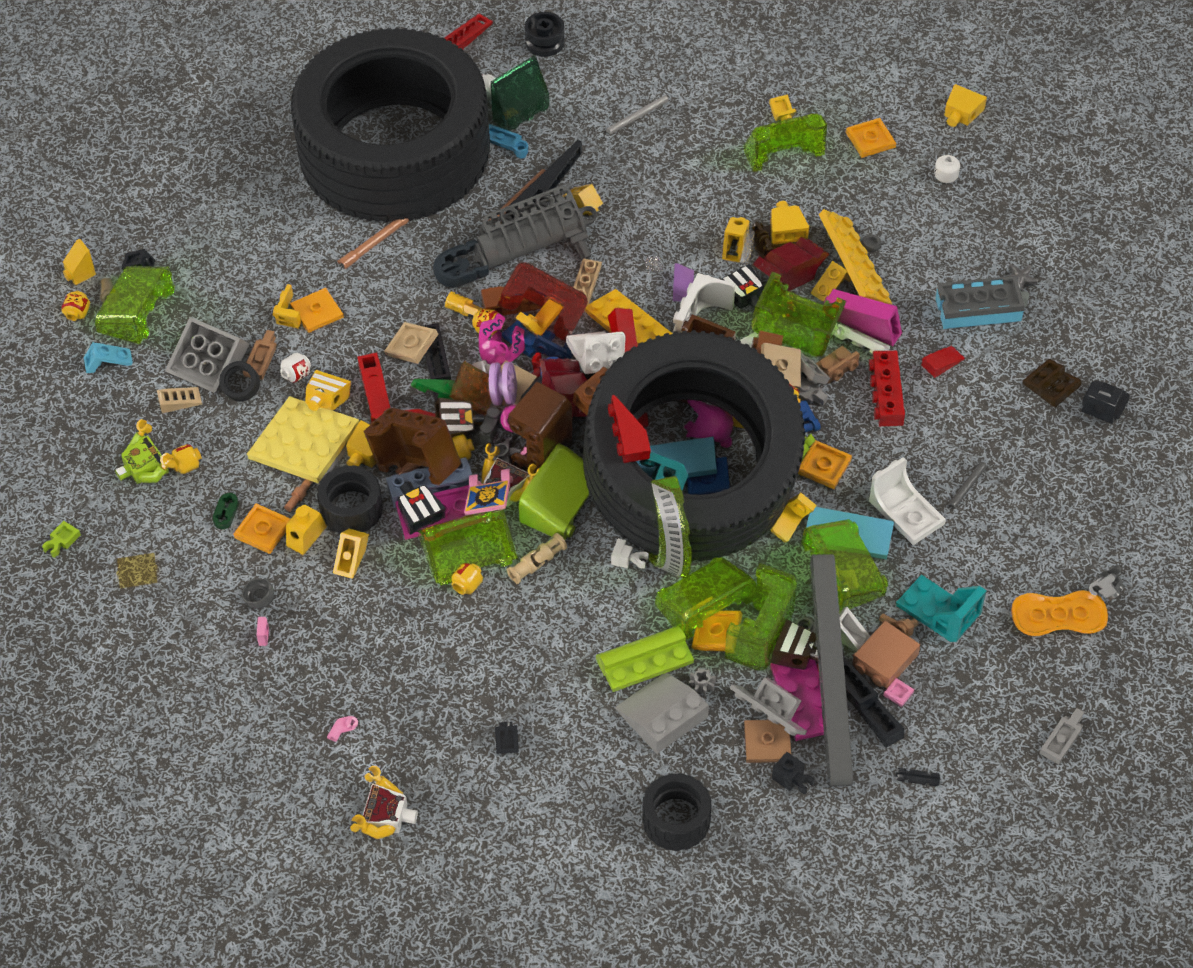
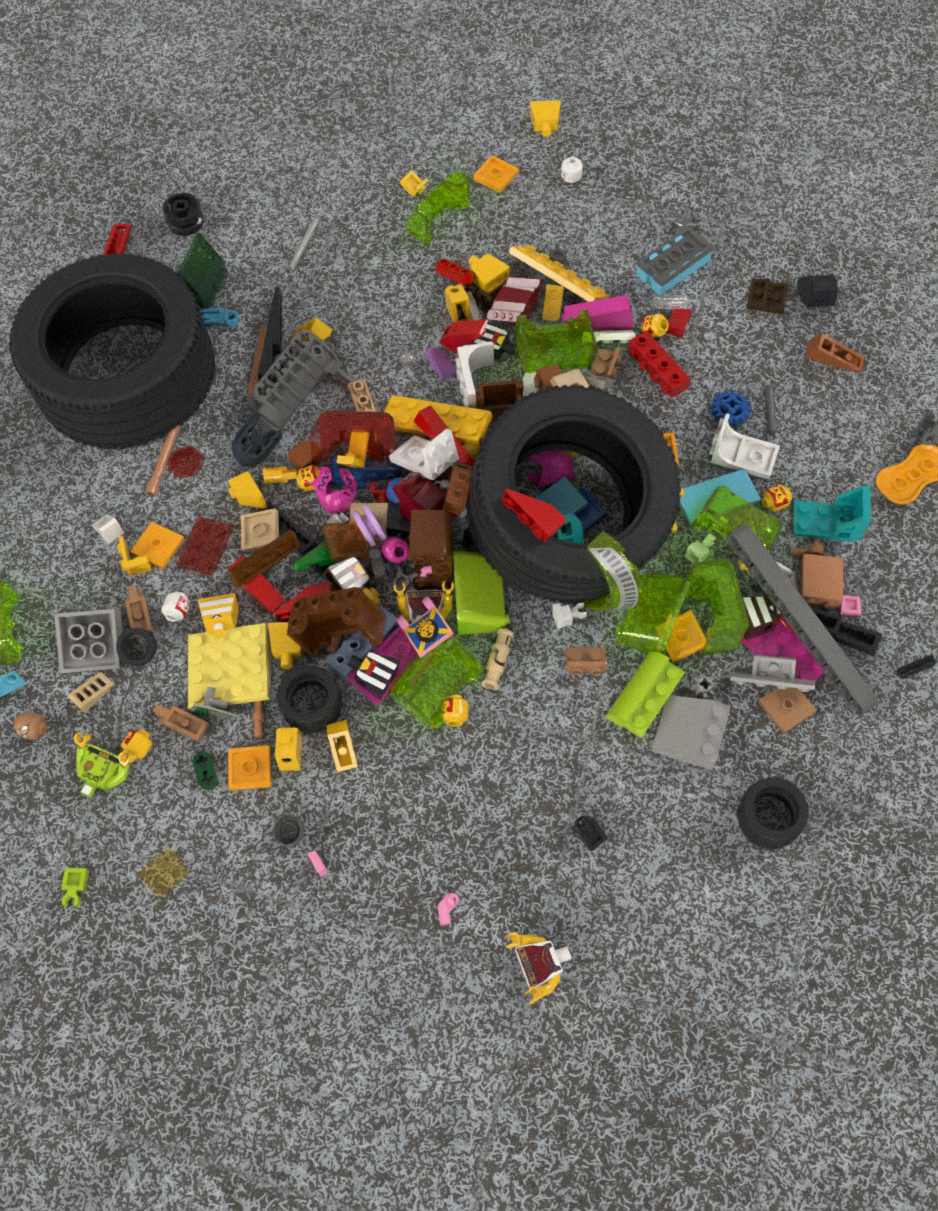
camera: 30 degrees left, 10 degrees up
(112, 397) = (30, 725): none -> medium nougat head
(234, 462) = (182, 721): none -> medium nougat hinge
(266, 461) = (209, 703): none -> light grey shield
(285, 275) = (108, 528): none -> white slope
(356, 332) = (205, 546): none -> clear red plate
(391, 259) = (186, 468): none -> clear red dish
(393, 363) = (264, 558): none -> reddish brown plate
(423, 303) = (246, 491): none -> yellow slope
(614, 602) = (586, 660): none -> medium nougat bracket
(716, 265) = (462, 334): none -> red slope
(756, 207) = (454, 272): none -> red plate
(790, 772) = (827, 723): black brick -> none
(792, 567) = (699, 551): none -> piece
(904, 563) = (776, 498): none -> yellow head
(911, 351) = (655, 325): none -> yellow head
(927, 461) = (731, 404): none -> blue gear
(947, 338) = (670, 301): none -> clear tile
(1071, 467) = (833, 353): none -> dark orange slope

